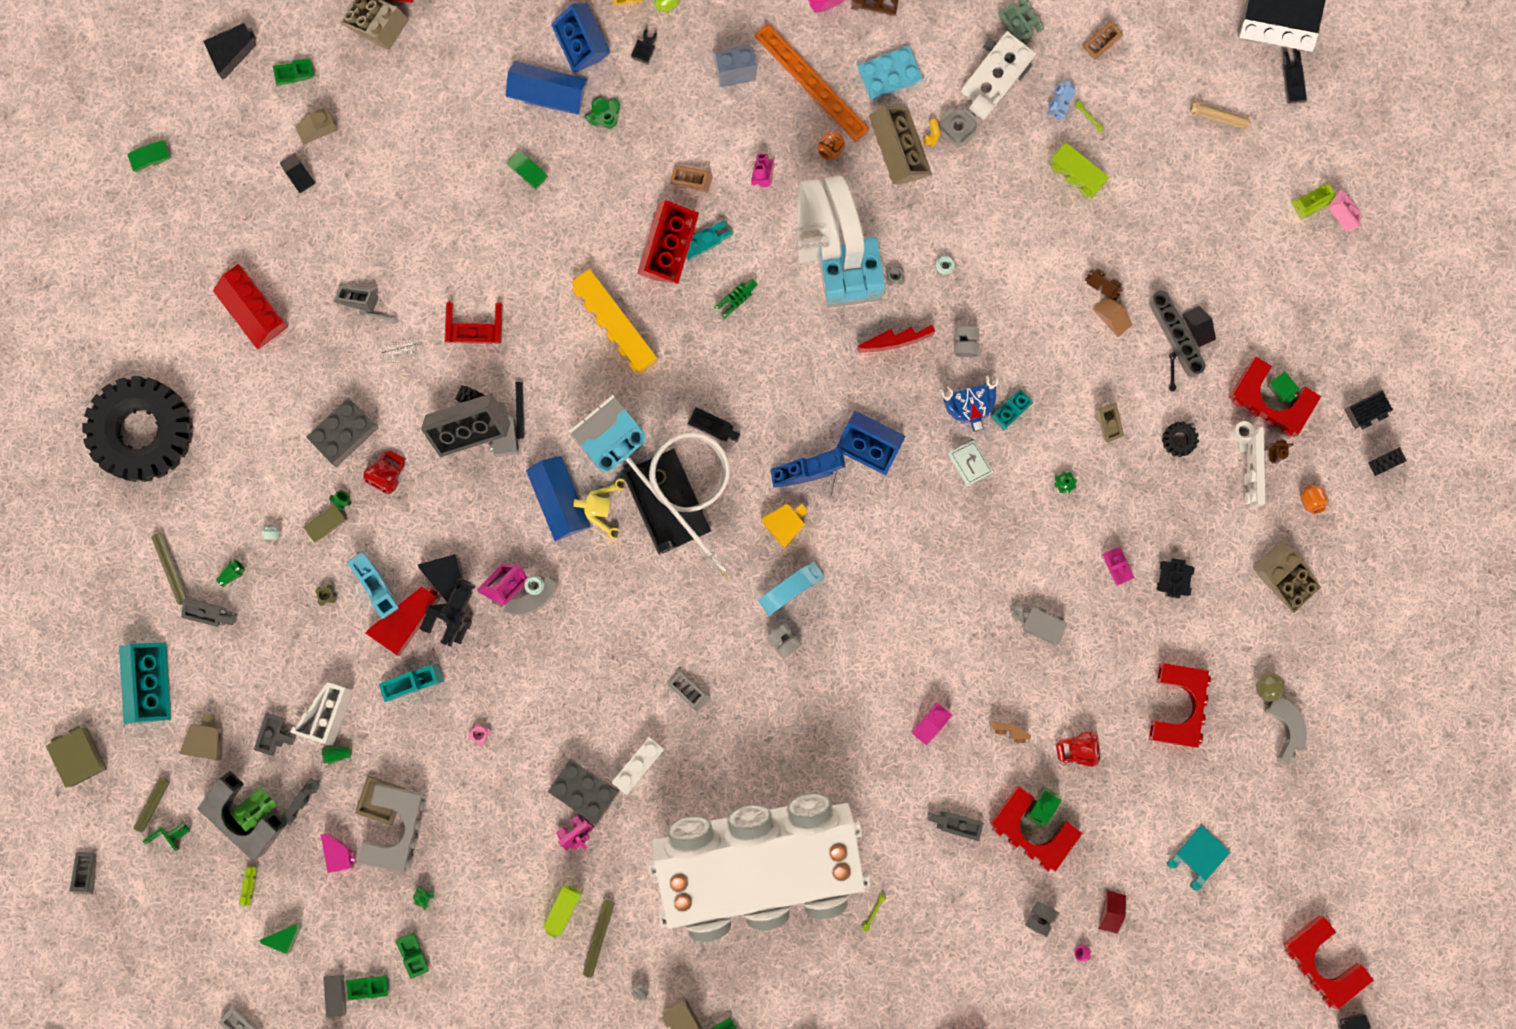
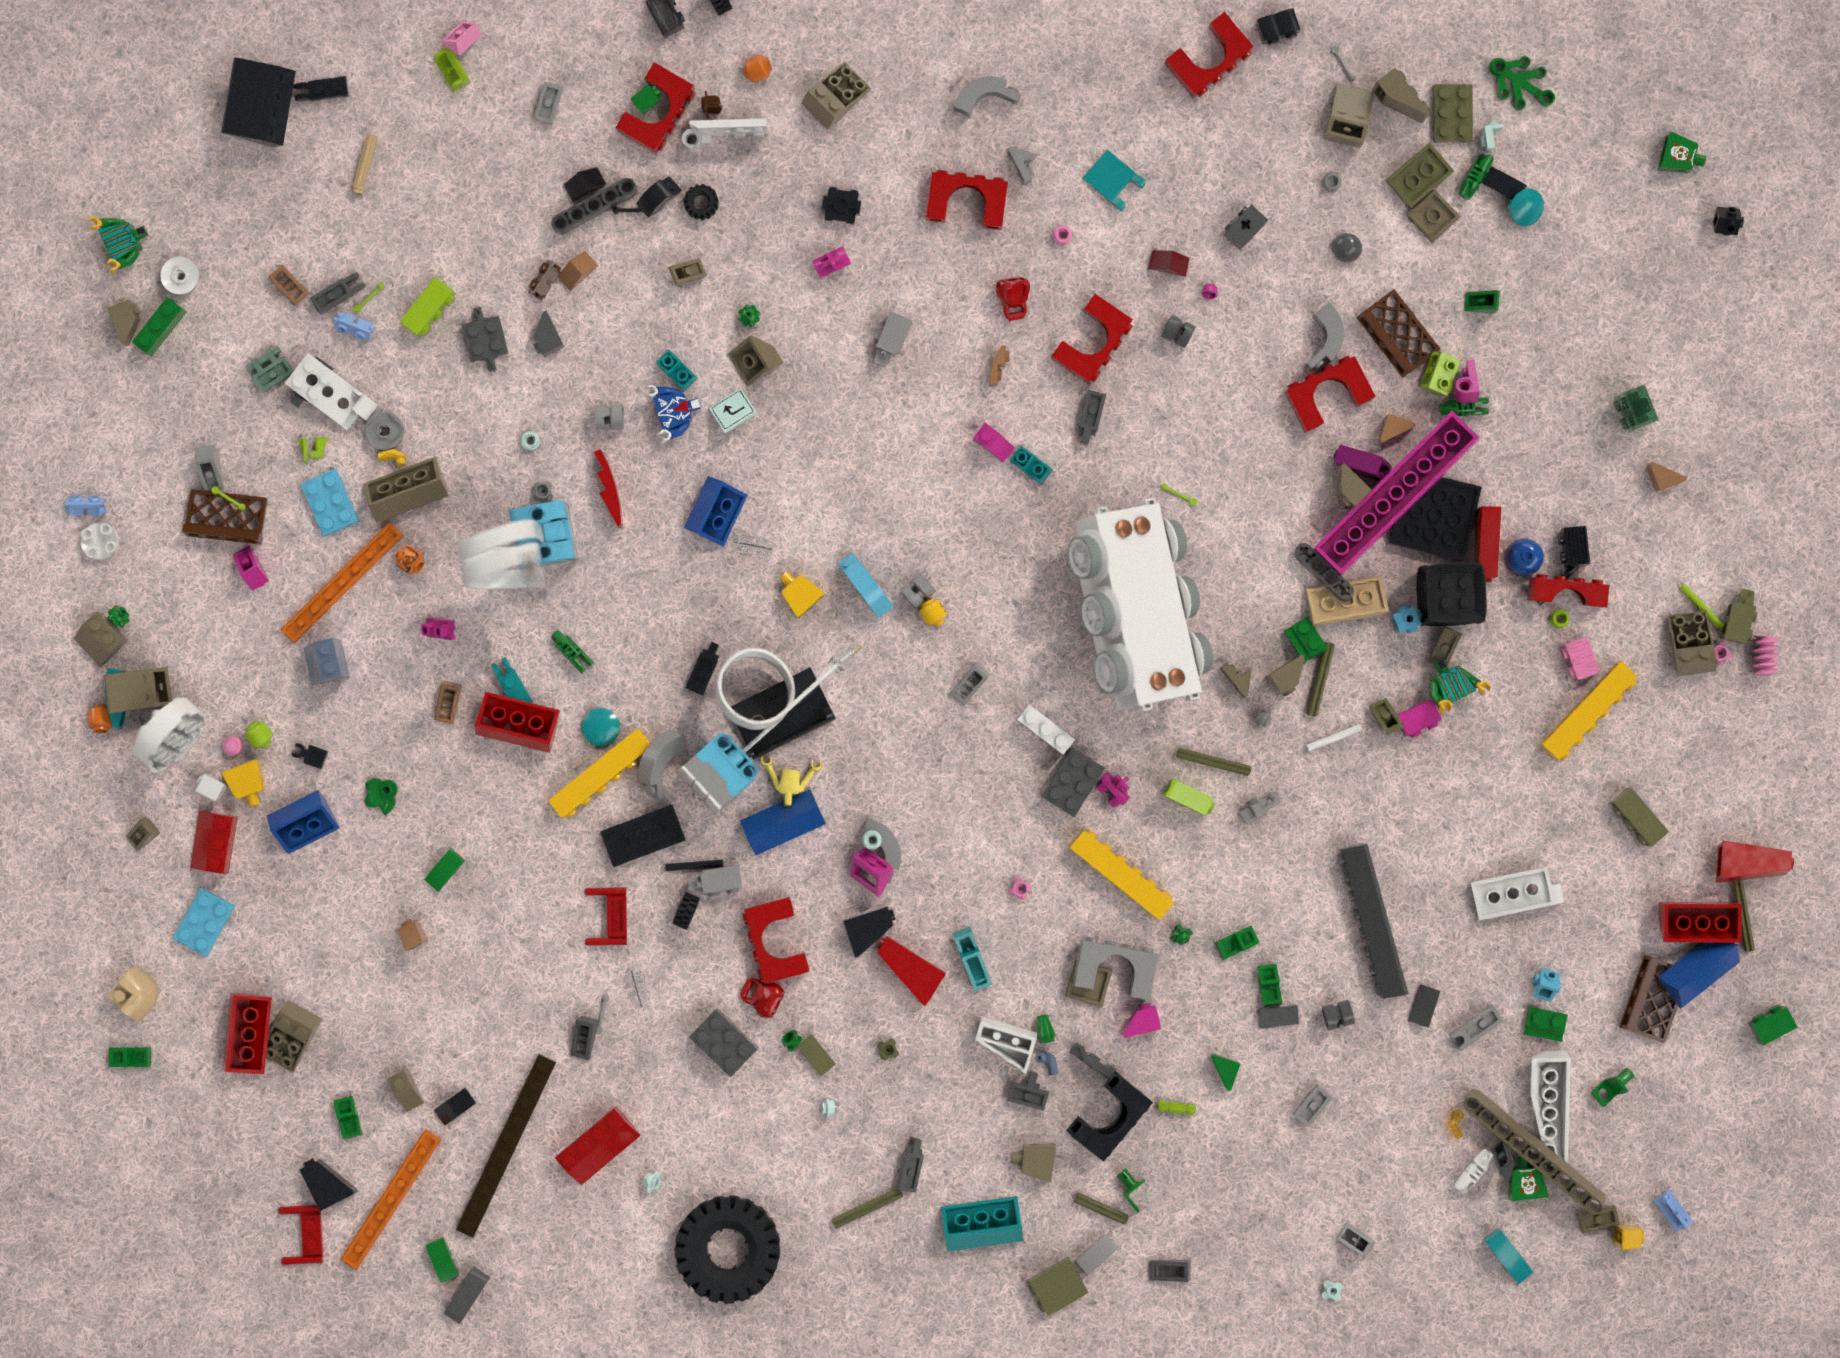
camera: 90 degrees left, 5 degrees up
(104, 797) = (1096, 1255): none -> light grey slope
(113, 177) = (466, 1295): none -> dark grey beam
(182, 34) = (311, 1234): none -> red plate
(210, 358) = (651, 1181): none -> light aqua plate
(211, 110) = (391, 1199): none -> orange tile
(231, 572) = (869, 1145): green cone -> none
(253, 809) = (1102, 1105): bright green plate -> none
(256, 220) = (506, 1145): none -> dark brown plate
(305, 756) = (1049, 1060): none -> sand blue arm
(374, 584) = (877, 1000): medium azure arch -> none
(414, 481) = (771, 967): none -> red arch
(451, 613) = (903, 920): black wheel -> none
(465, 135) = (412, 934): none -> medium nougat slope
(466, 425) = (714, 915): dark grey brick -> none
(487, 837) = (1121, 874): none -> yellow brick
(545, 87) = (356, 855): blue slope -> none
(549, 983) = (1257, 807): none -> light grey piece
(551, 361) = (643, 835): none -> black plate
(625, 374) = (655, 759): none -> light grey arch
(660, 324) = (601, 727): none -> teal dish
(678, 971) = (1240, 683): none -> dark tan slope
(761, 655) = (932, 612): none -> yellow head
(808, 469) = (745, 572): blue slope -> none
(908, 761) = (1031, 465): none -> teal slope
(937, 63) = (314, 454): none -> lime piece
(1021, 486) = (754, 359): none -> dark tan slope
(1043, 807) = (1070, 331): green torso -> none
(1046, 225) = (485, 339): none -> dark grey plate
(1047, 284) = (547, 337): none -> dark grey slope
(1093, 85) = (336, 293): none -> dark grey hinge
(1138, 989) = (1255, 222): none -> dark grey brick
(1149, 802) = (1064, 229): none -> bright pink plate
(1187, 395) = (657, 196): none -> black brick
(1221, 761) = (1020, 158): none -> light grey slope
(1270, 687) = (945, 111): olive hair -> none
(1279, 293) = (548, 103): none -> light grey plate

